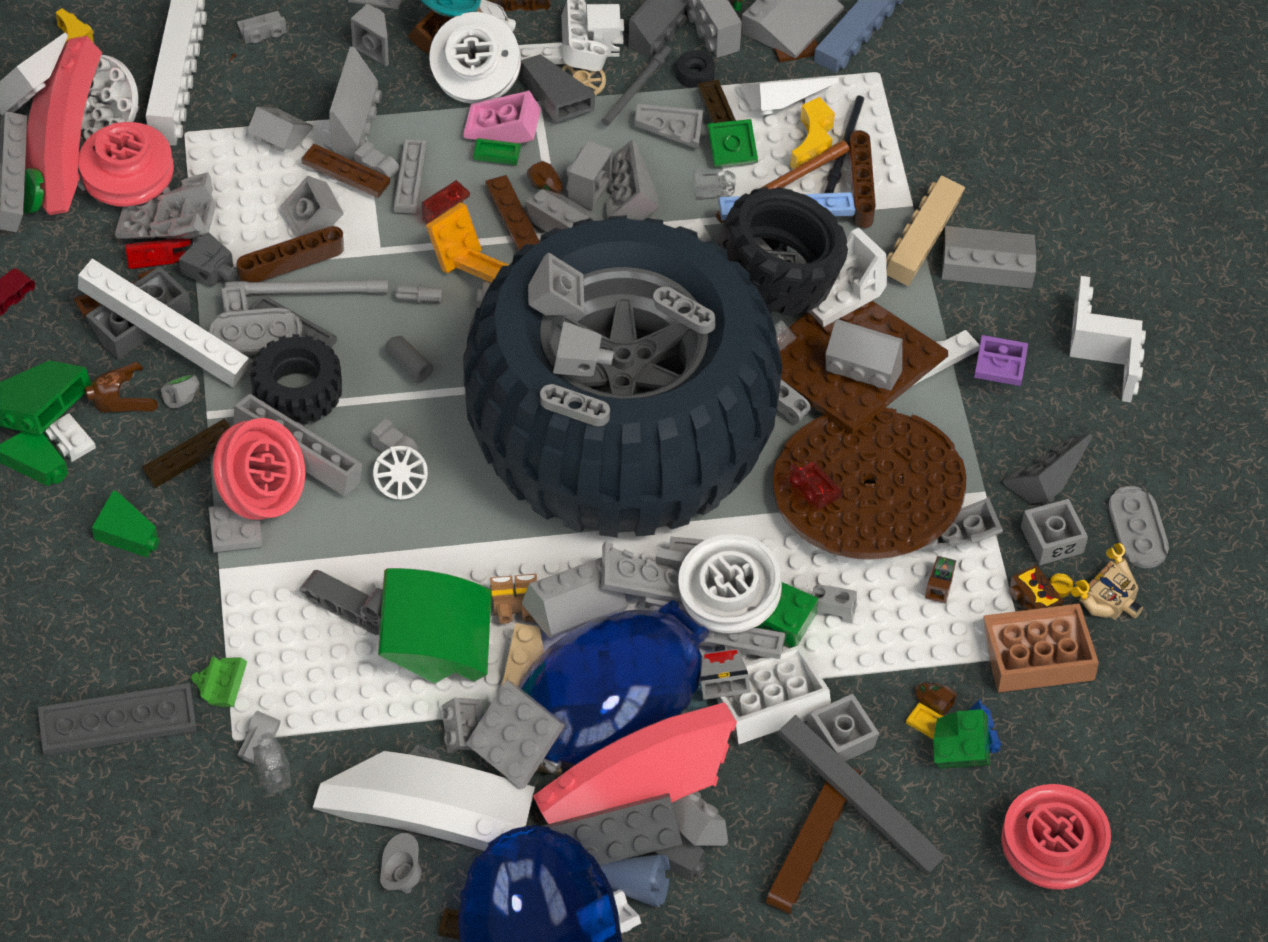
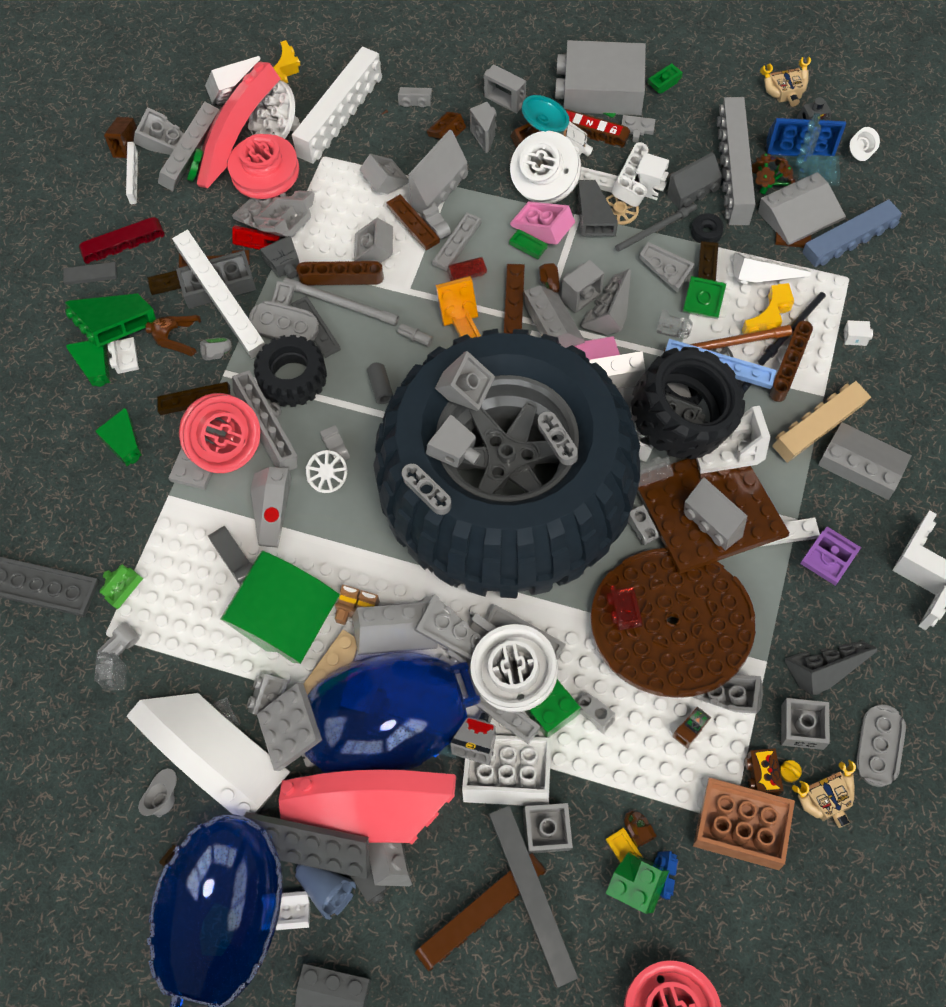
camera: 30 degrees right, 10 degrees up
(72, 338) = (164, 282): none -> dark brown plate
(323, 50) = (449, 121): none -> reddish brown bracket
(347, 524) = (269, 500): none -> light grey wedge
(917, 126) = (857, 333): none -> white brick

